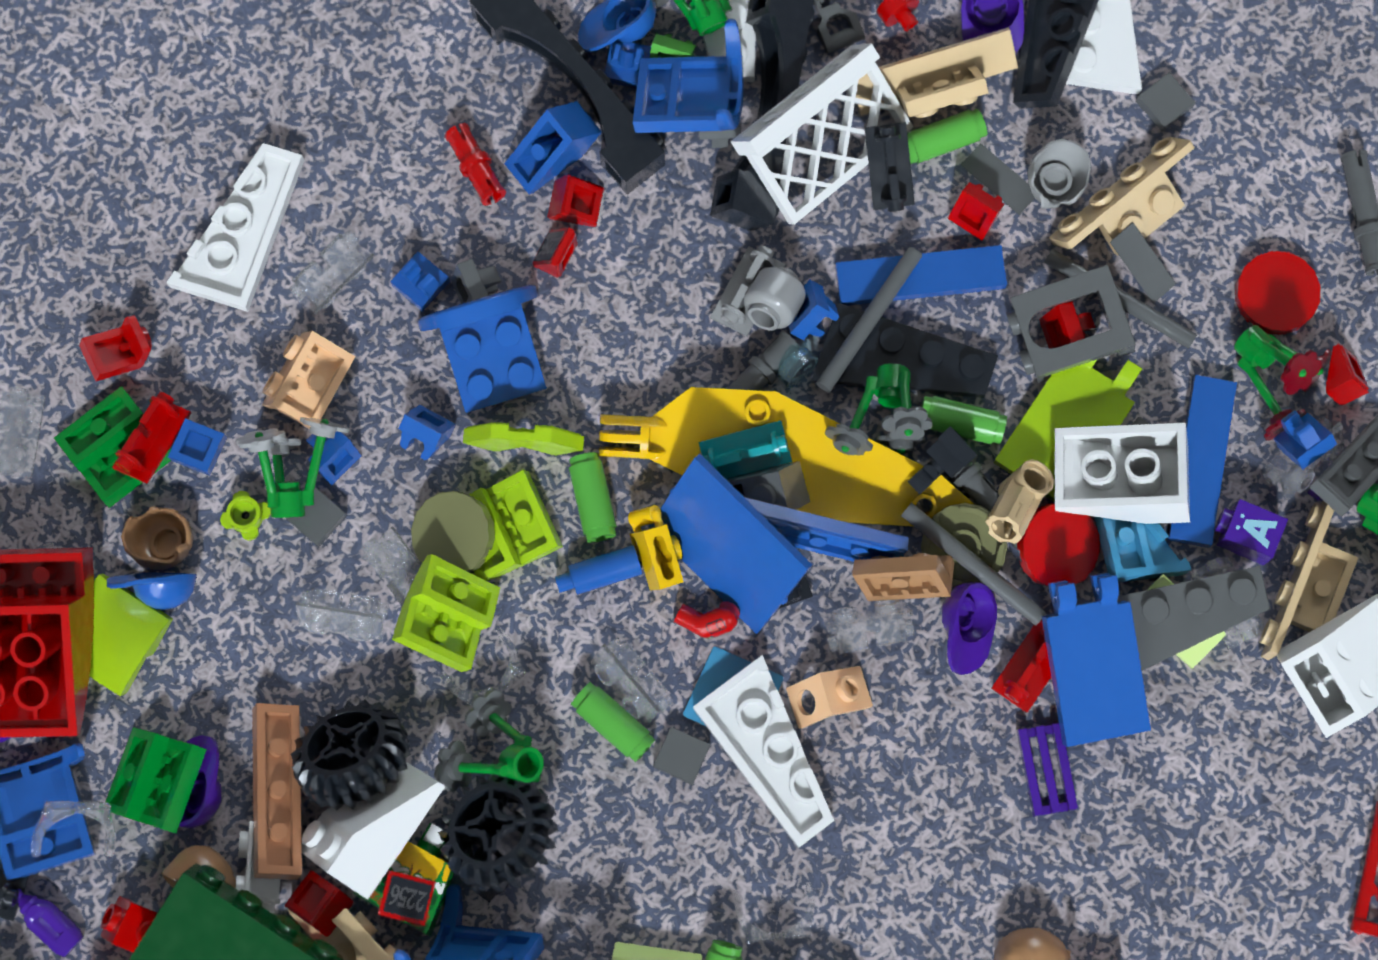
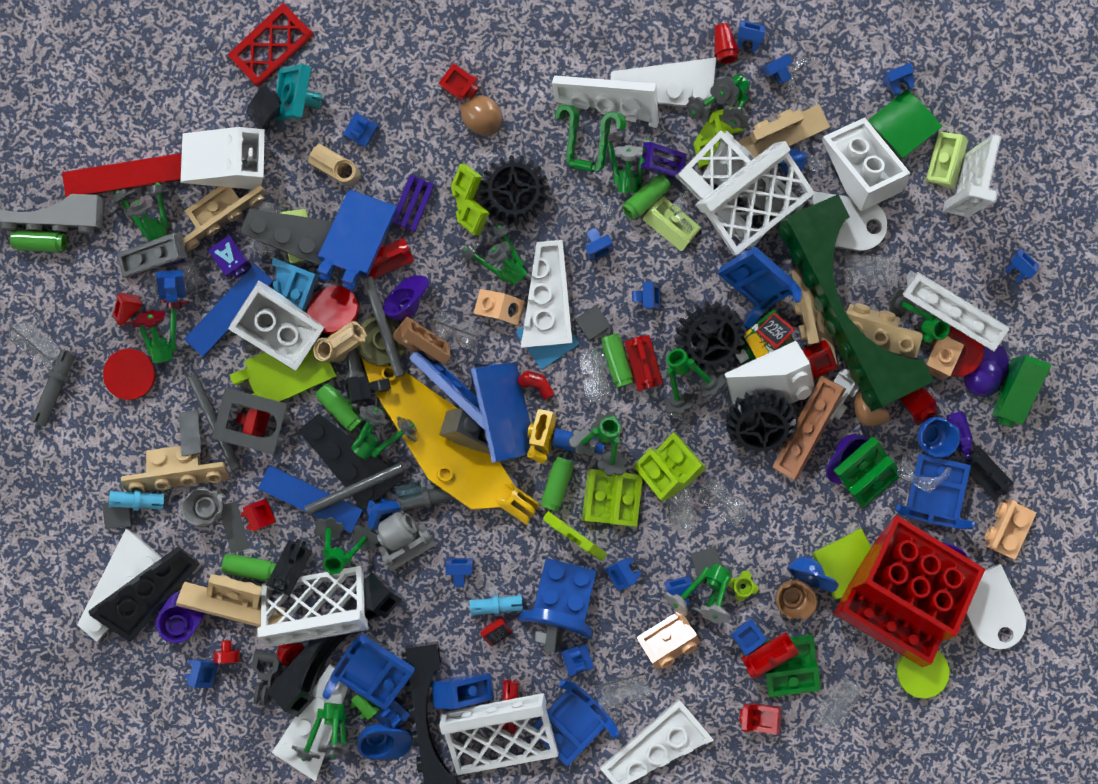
camera: 150 degrees left, 10 degrees up
(77, 892) = (938, 437): none -> blue hair
(376, 192) = (575, 721): none -> blue piece
(453, 529) = (640, 509): olive tile -> none
(487, 134) = (490, 716): none -> white fence
(564, 601) = (607, 431): none -> plant
(573, 742) = (643, 362): none -> red hinge
(575, 201) = (468, 653): red slope -> none
(576, 285) = (496, 605): none -> medium azure pin
(623, 843) = (649, 296): none -> blue tile
(657, 301) = (459, 568): none -> blue tile
(741, 871) = (598, 245): none -> blue tile
(747, 450) = (464, 457): teal hinge -> none
(818, 56) = (288, 652): none -> red tile
(831, 213) = (336, 558): none -> plant
(847, 757) = (511, 269): none -> plant
(926, 893) = (525, 188): none -> black gear
(986, 836) = (463, 188): none -> lime tile
(1153, 131) = (136, 500): none -> medium azure pin
(1190, 829) = (360, 130): none -> blue tile
(1195, 753) = (333, 164): none -> tan piece
(1320, 817) = (293, 92): none -> teal tile
(1347, 770) = (264, 107): none -> black slope

